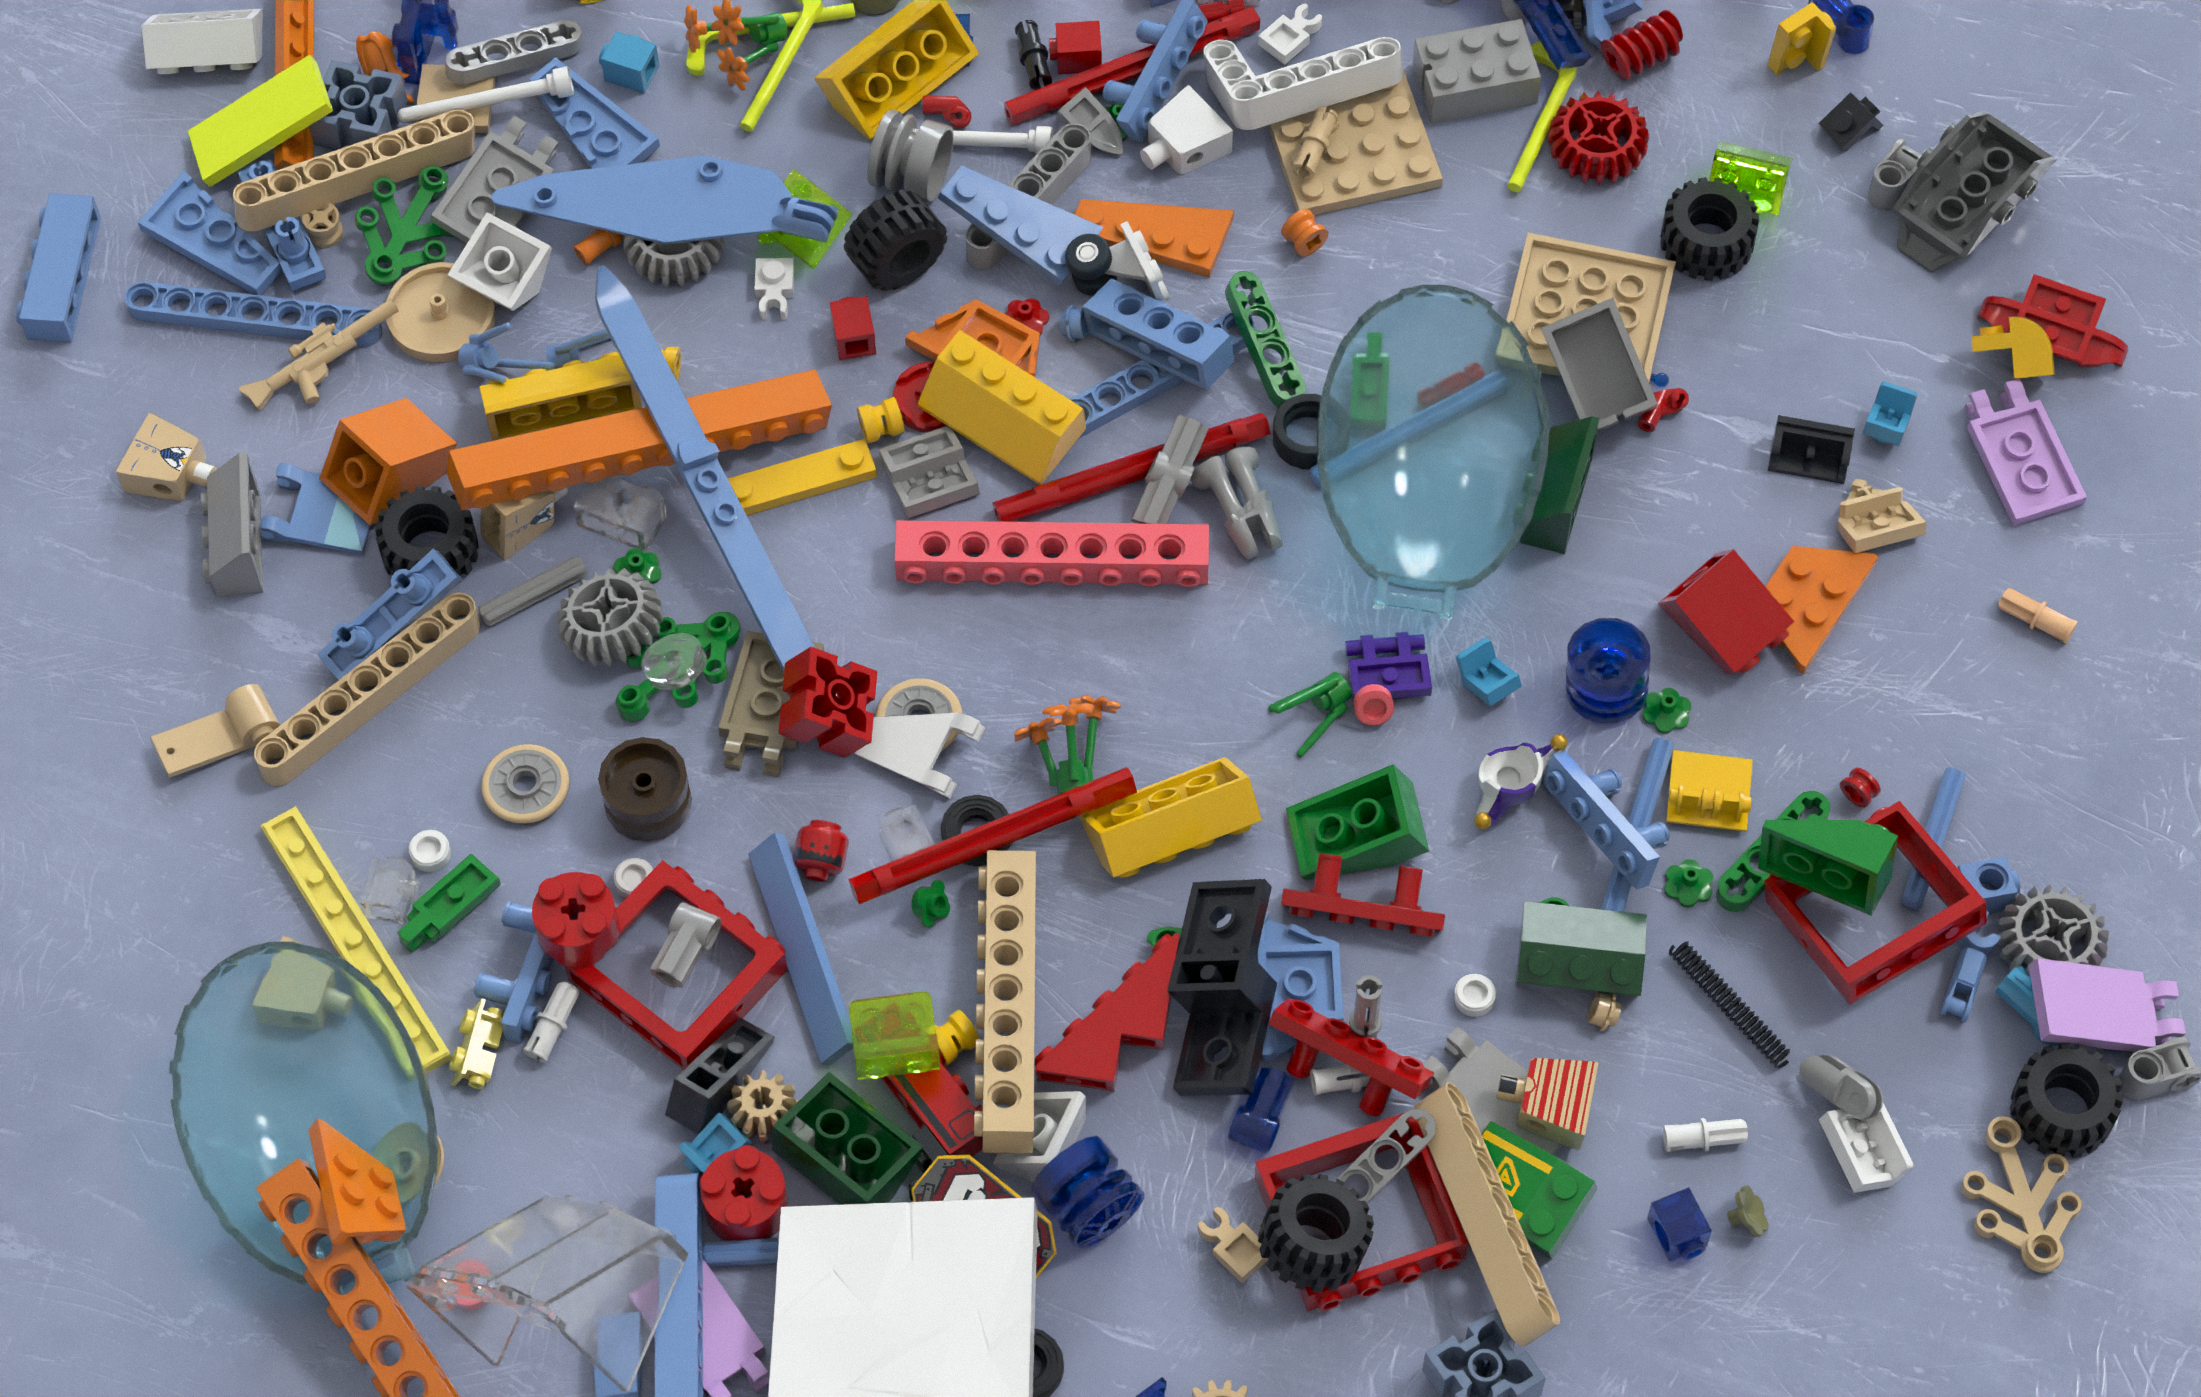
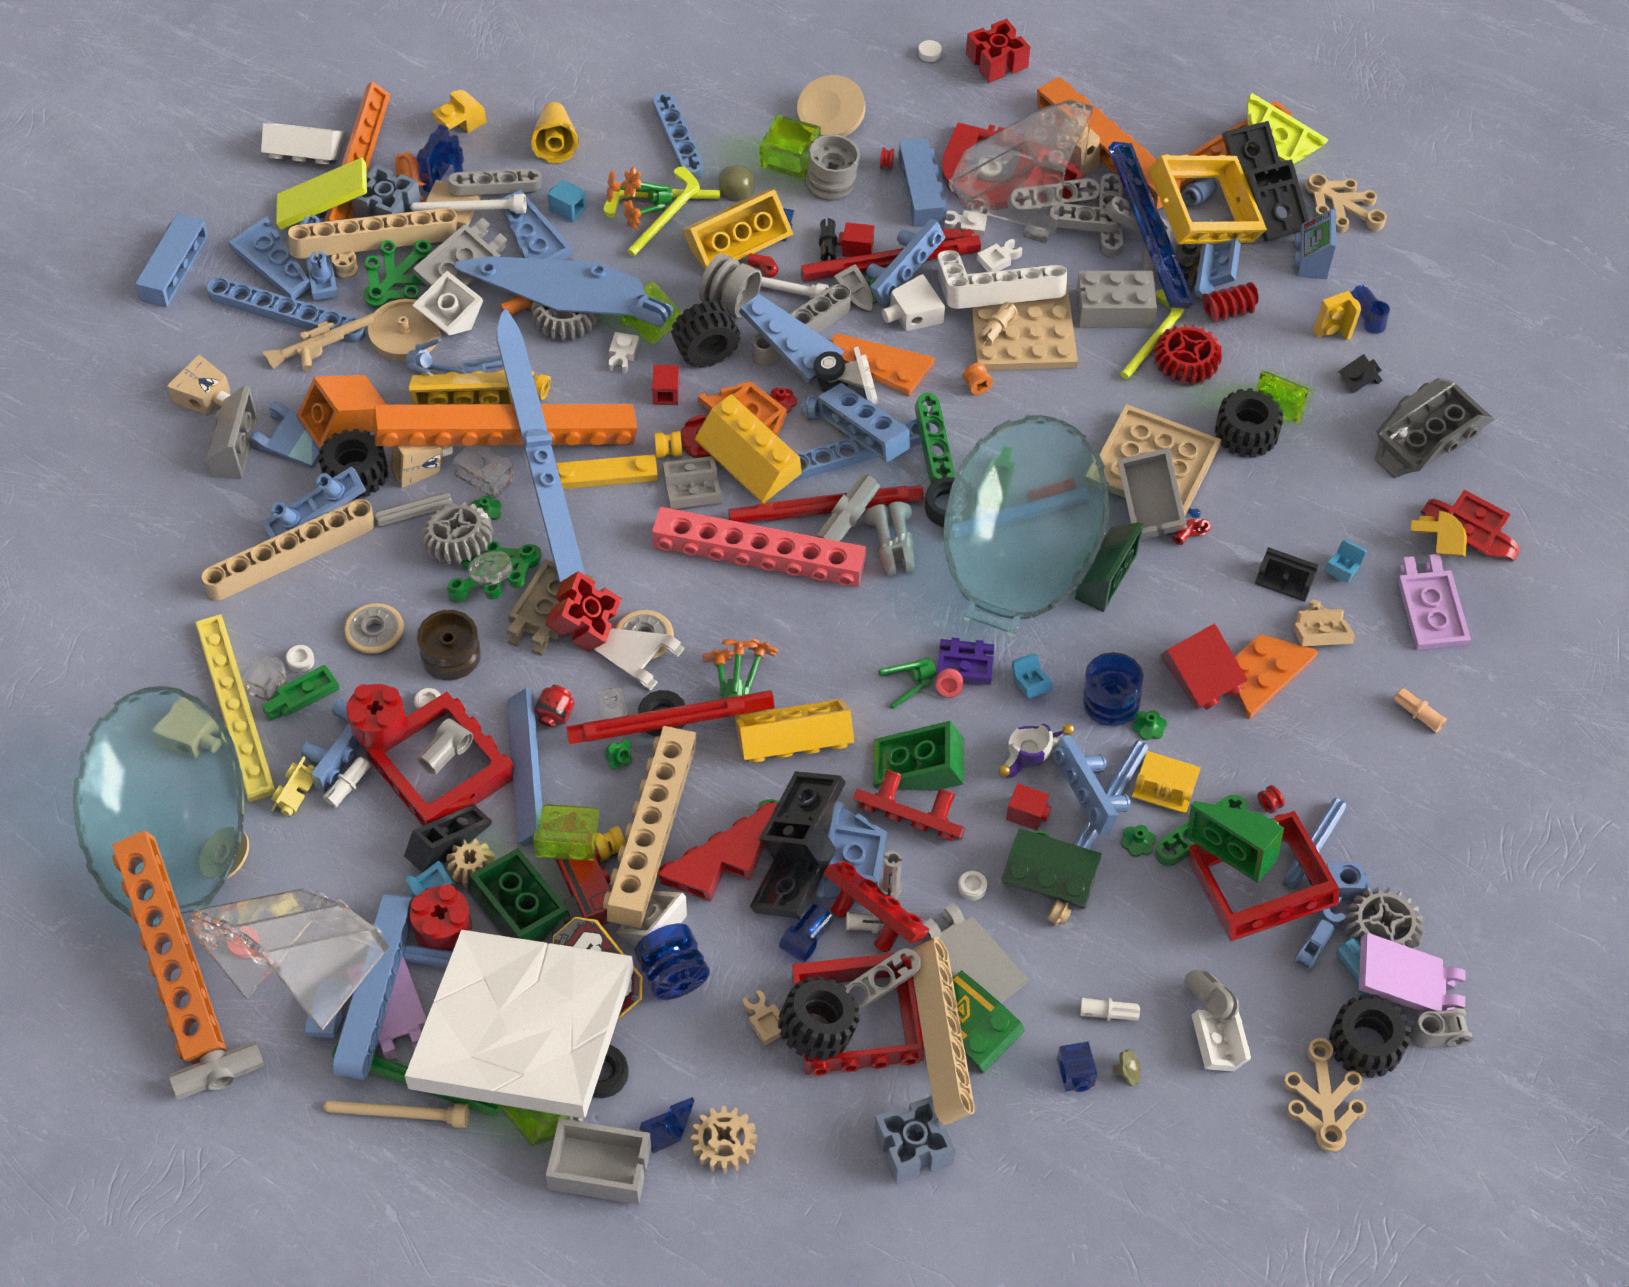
camera: 10 degrees right, 5 degrees down
(219, 735) = (184, 560): tan door -> none
(355, 1189) = (179, 860): orange wing -> none
(1528, 866) = (1028, 807): none -> red brick
(1553, 1098) = (1007, 962): tan torso -> none
(1718, 983) = (1155, 933): black piece -> none
(1892, 175) = (1380, 410): light grey piece -> none

